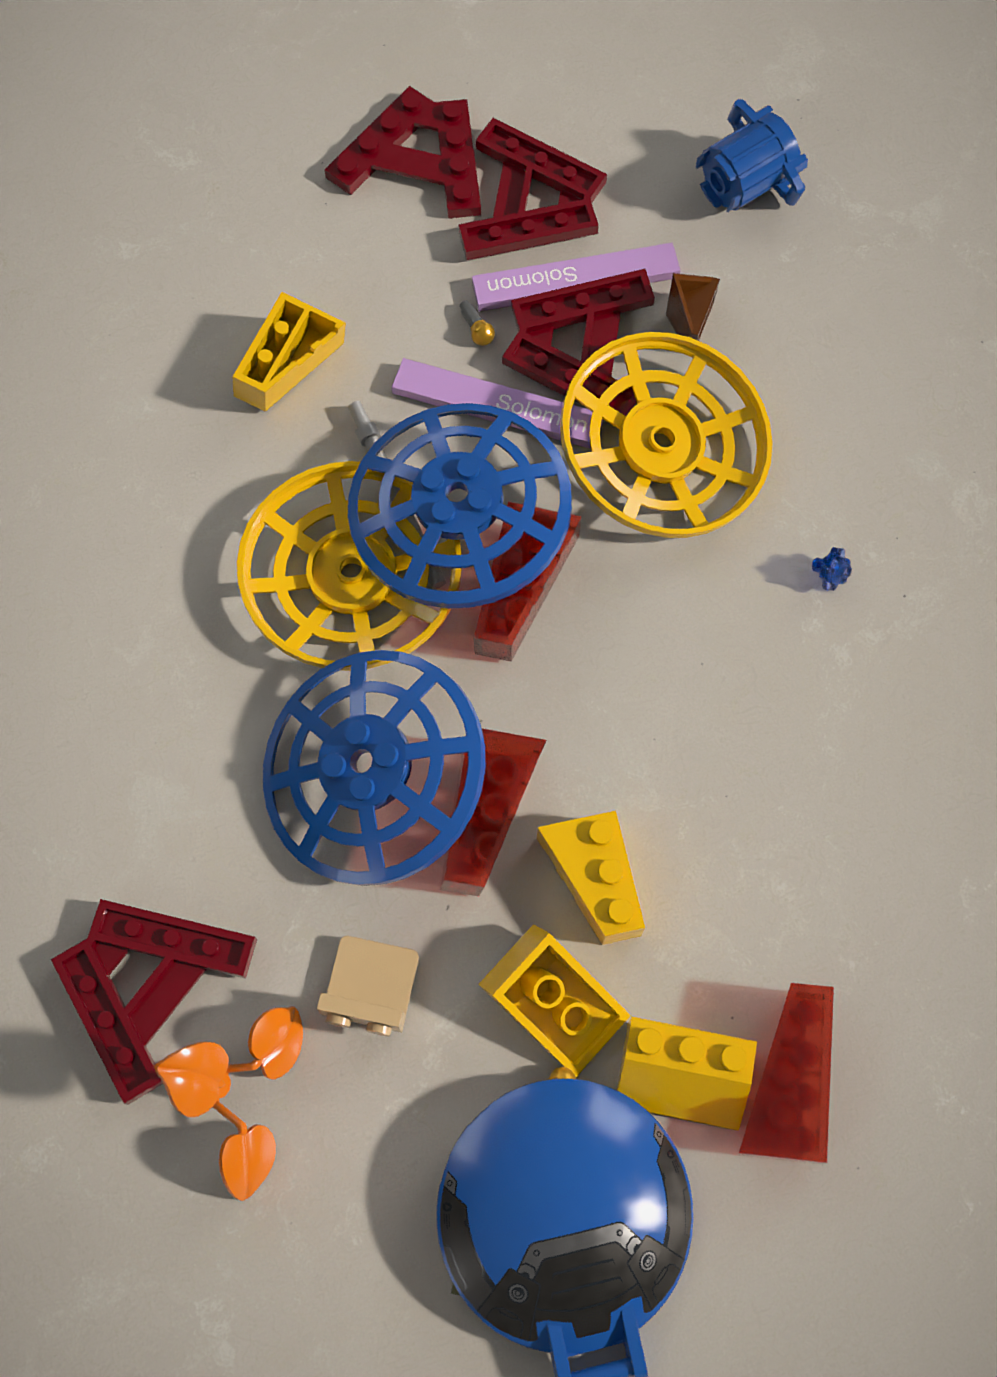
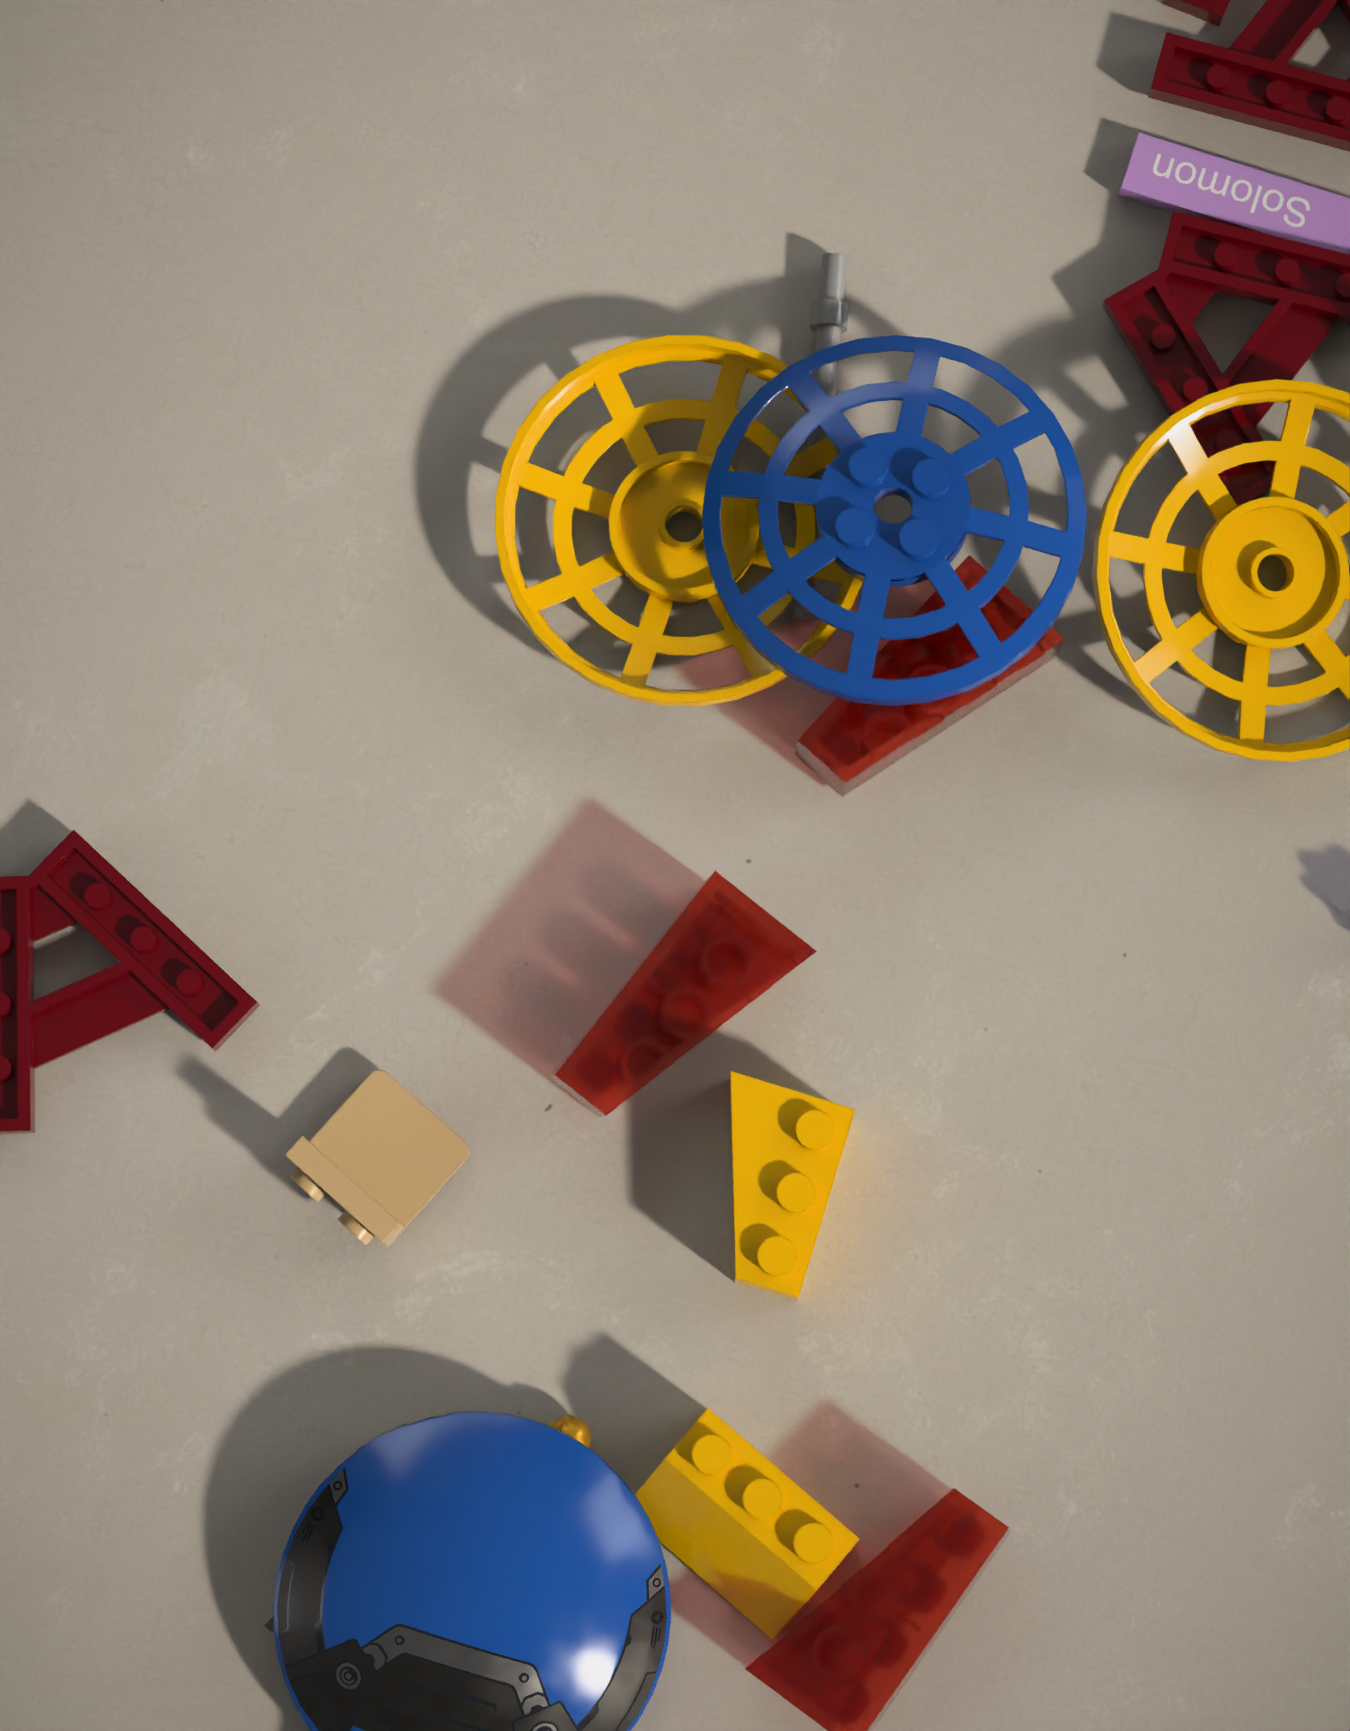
camera: 30 degrees right, 10 degrees up
(200, 1077) = (84, 1161): orange plant -> none
(285, 351) = (774, 114): yellow wedge -> none
(386, 776) = (569, 868): blue dish -> none
(446, 387) = (1044, 358): lavender tile -> none
(481, 331) = (1100, 236): pearl gold piece -> none
(554, 999) = (620, 1321): yellow slope -> none

